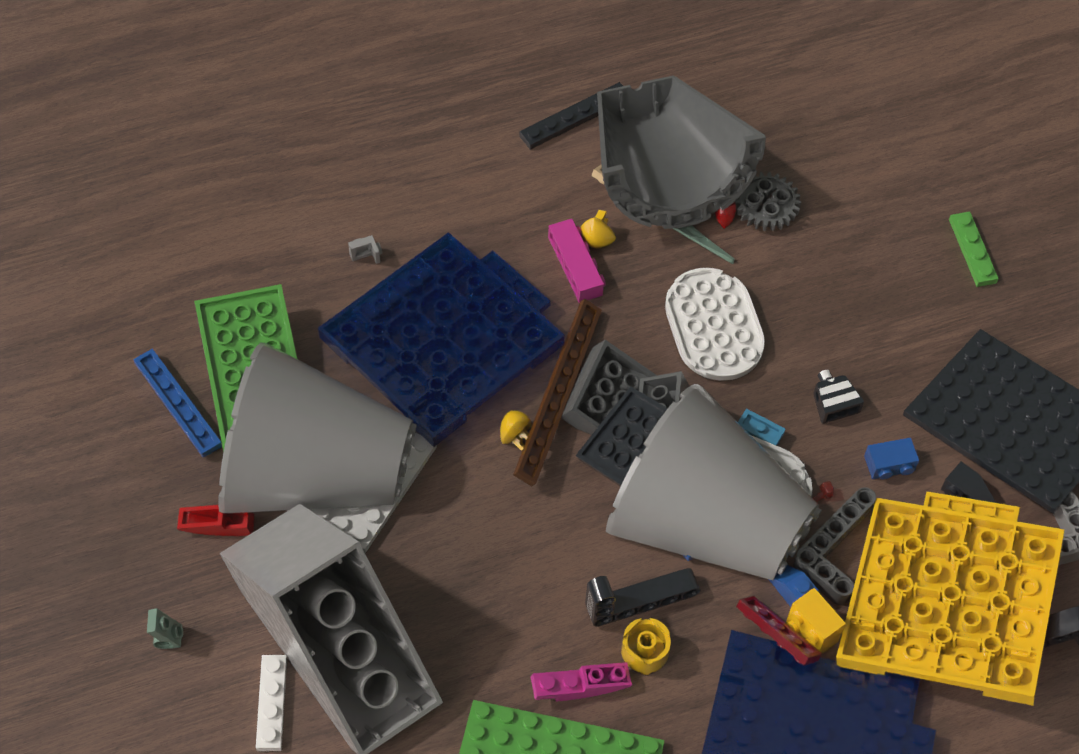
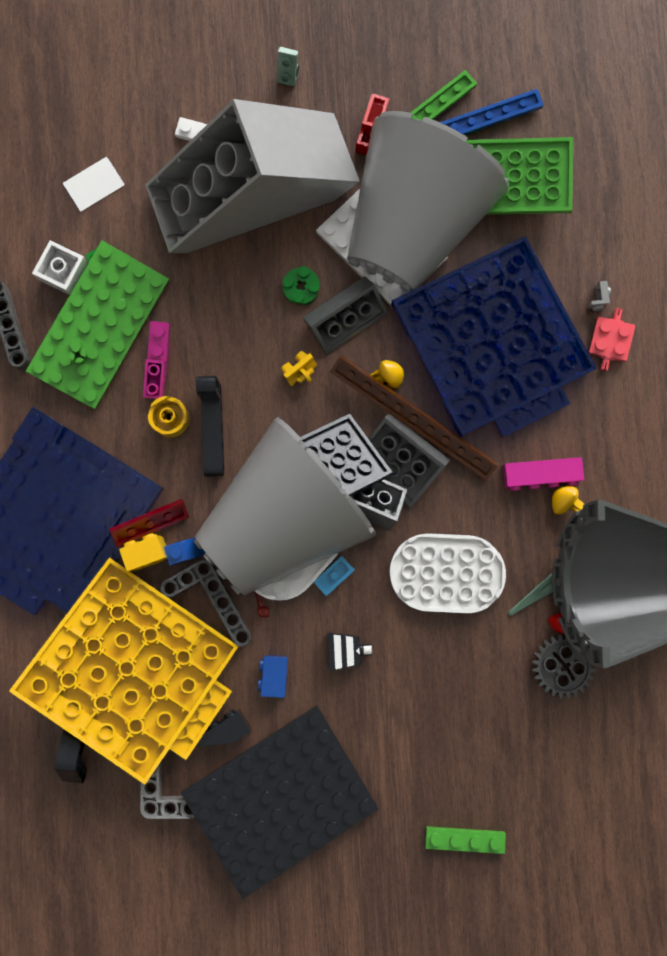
camera: 105 degrees right, 25 degrees up
(167, 454) = (445, 97): none -> bright green plate
(408, 231) = (611, 339): none -> coral plate
(440, 561) = (302, 275): none -> green plate
(459, 491) = (346, 314): none -> dark grey slope
(547, 528) = (301, 370): none -> yellow hips

